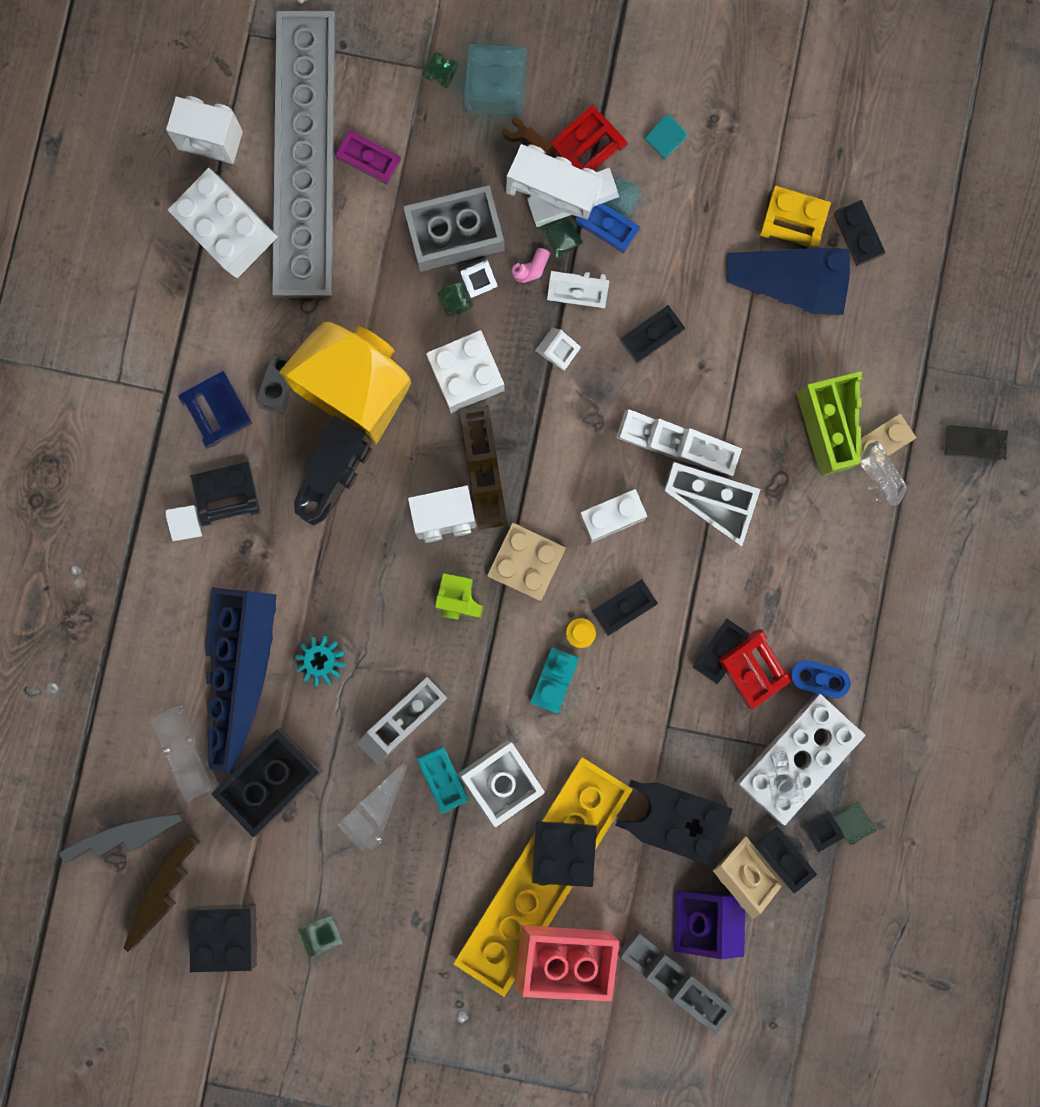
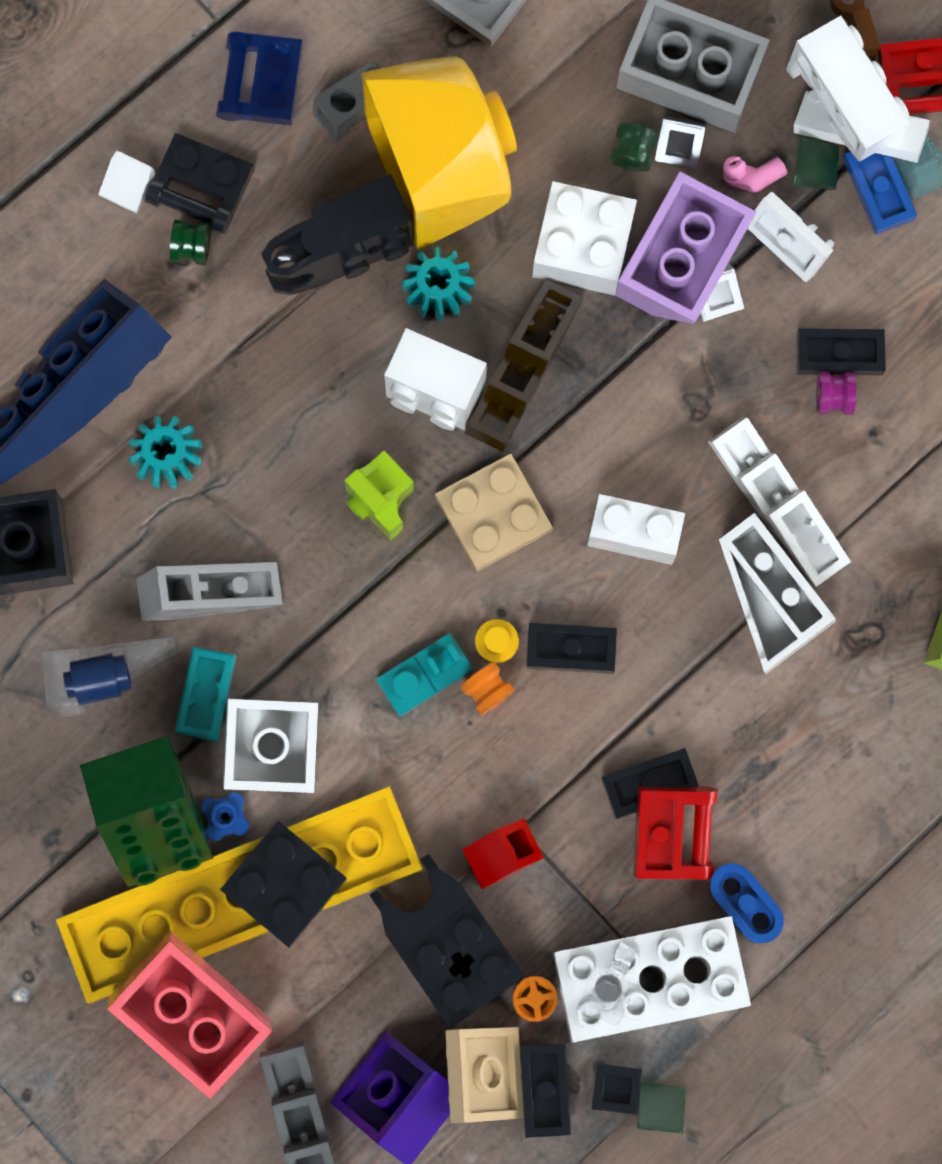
camera: 35 degrees right, 5 degrees down
(245, 532) = (190, 242): none -> dark green wheel
(380, 818) = (97, 678): none -> dark blue brick
(398, 447) = (443, 270): none -> teal gear
(463, 872) = (146, 812): none -> dark green piece
(503, 847) = (234, 825): none -> blue plate
(528, 340) = (684, 251): none -> lavender slope
(595, 663) = (487, 689): none -> orange wheel
(667, 359) = (836, 393): none -> magenta wheel
(670, 755) = (493, 855): none -> red brick
(748, 818) = (540, 996): none -> orange wheel

